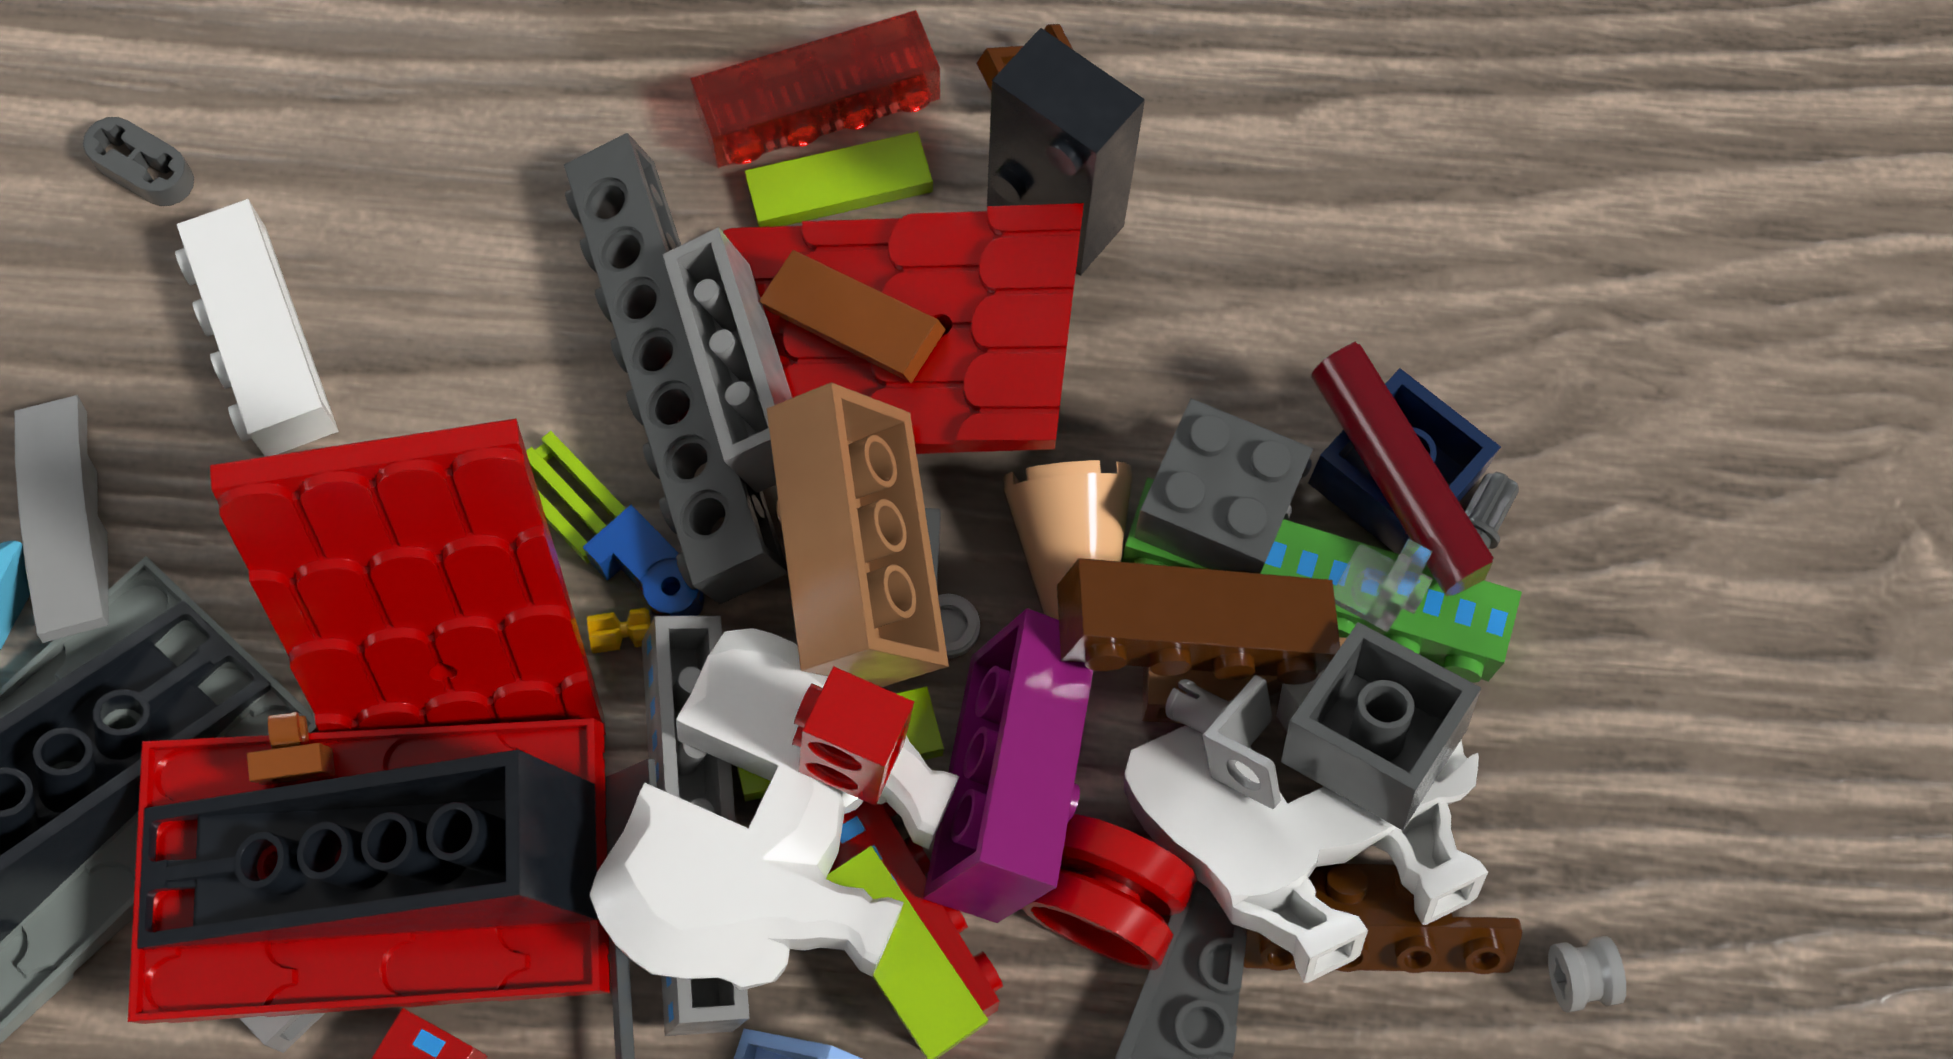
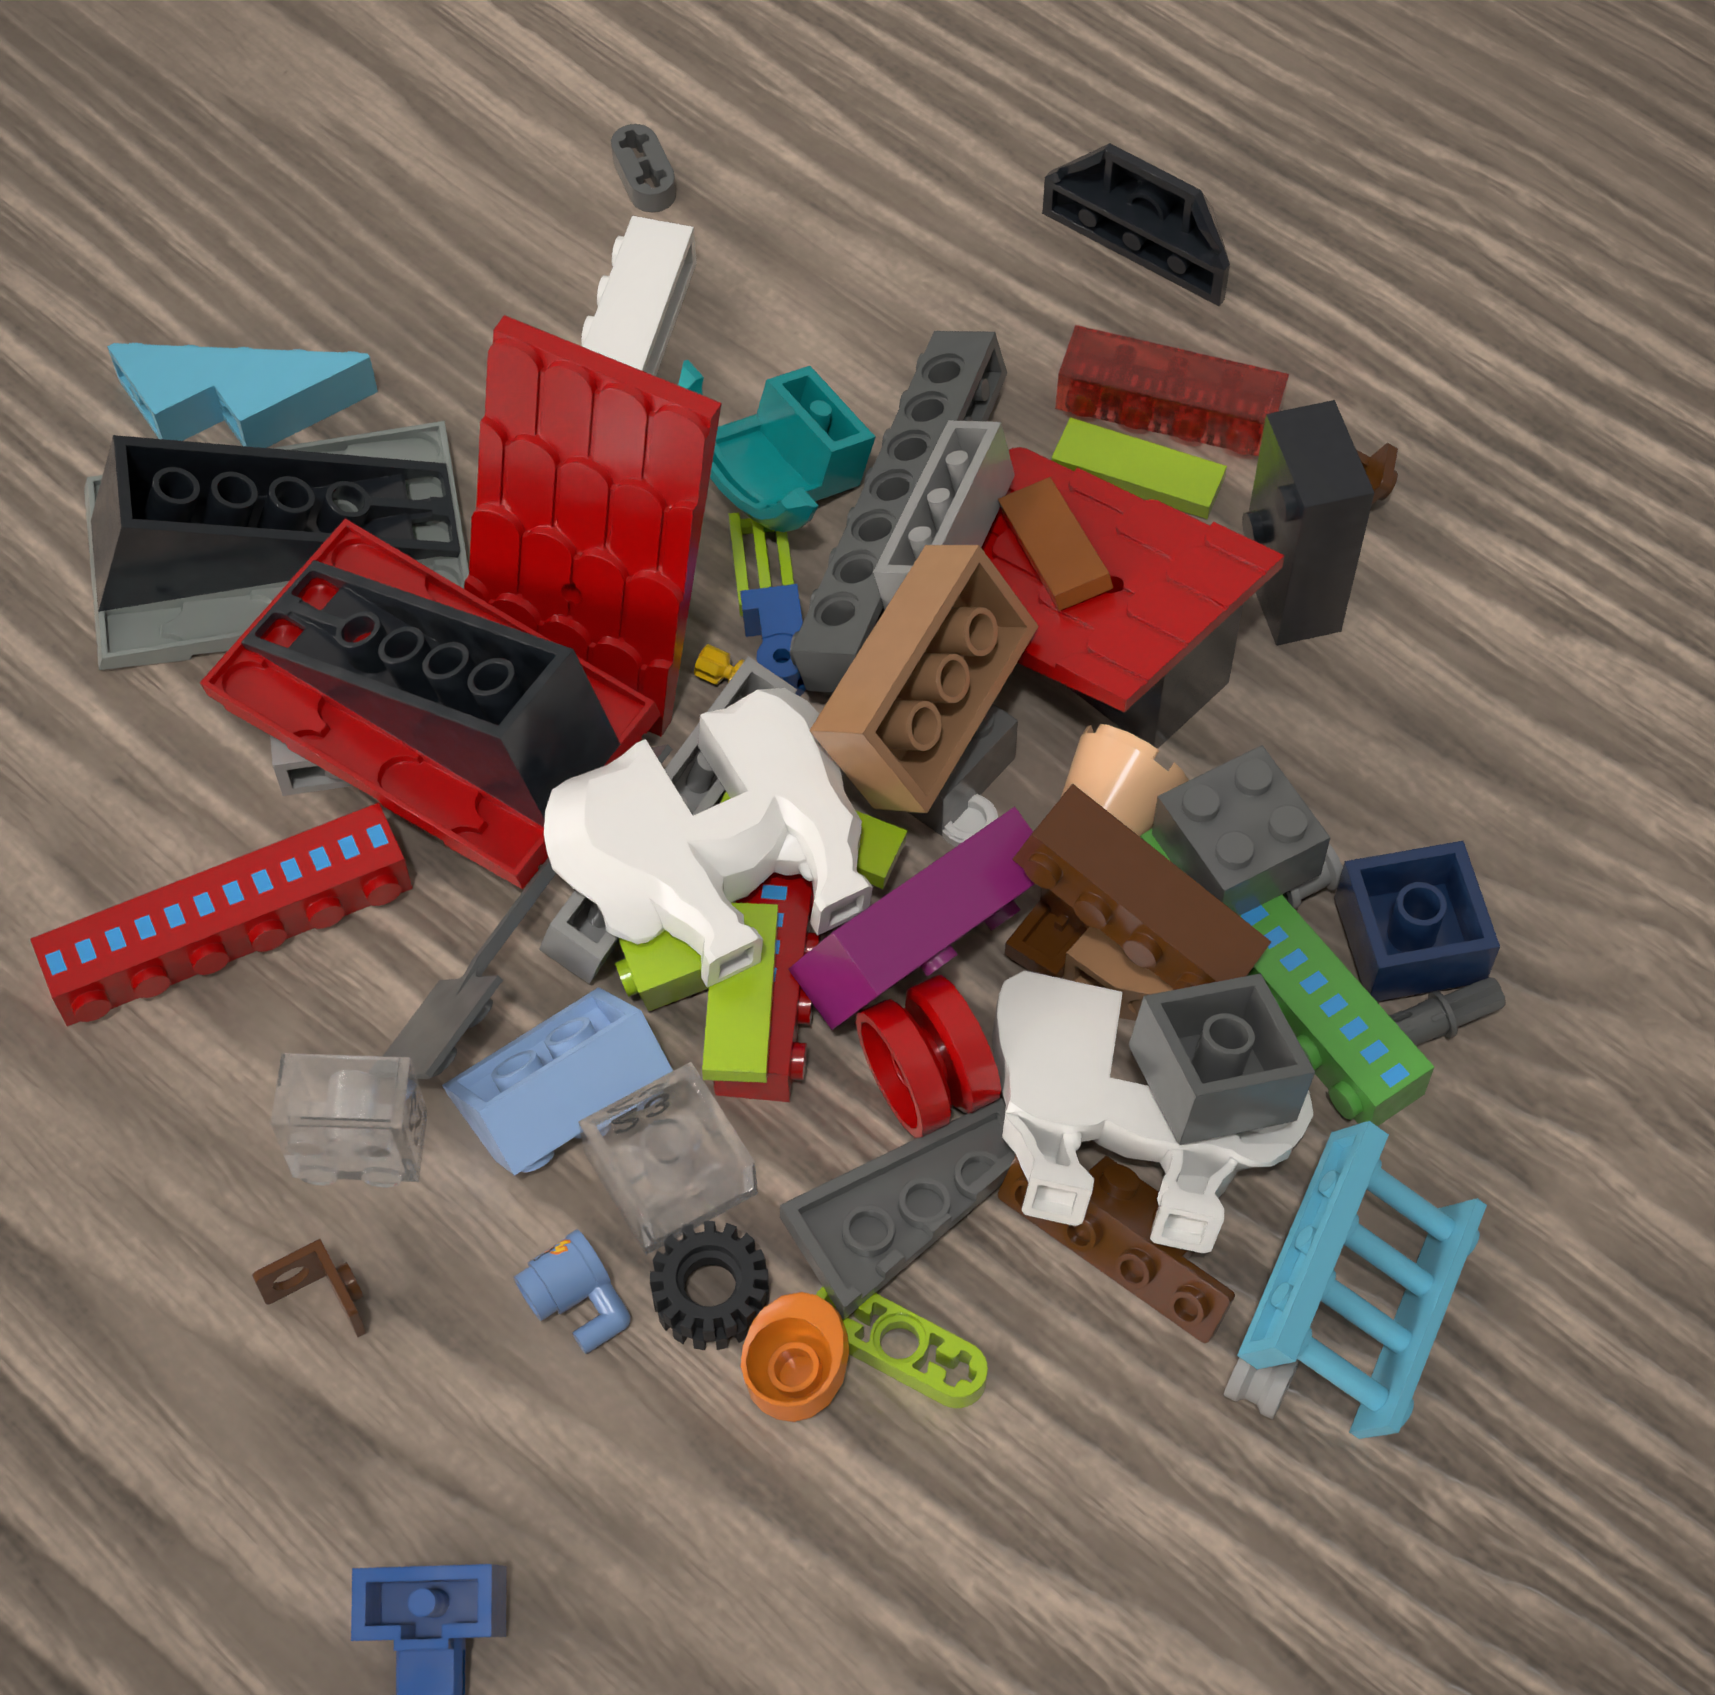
camera: 40 degrees right, 10 degrees down
(60, 520) = (407, 360): light grey slope -> none
(291, 753) = (432, 579): dark orange tile -> none
(513, 360) = (790, 452): none -> teal piece
(800, 984) = (660, 970): none -> lime brick
(851, 734) = (807, 787): red brick -> none
(1116, 702) = (1045, 936): none -> reddish brown bracket
(1229, 733) = (1104, 997): light grey bracket -> none
(1380, 587) = (1316, 977): clear bracket -> none
(1403, 469) = (1393, 905): dark red brick -> none
(1571, 846) = (1307, 1275): none -> medium azure fence

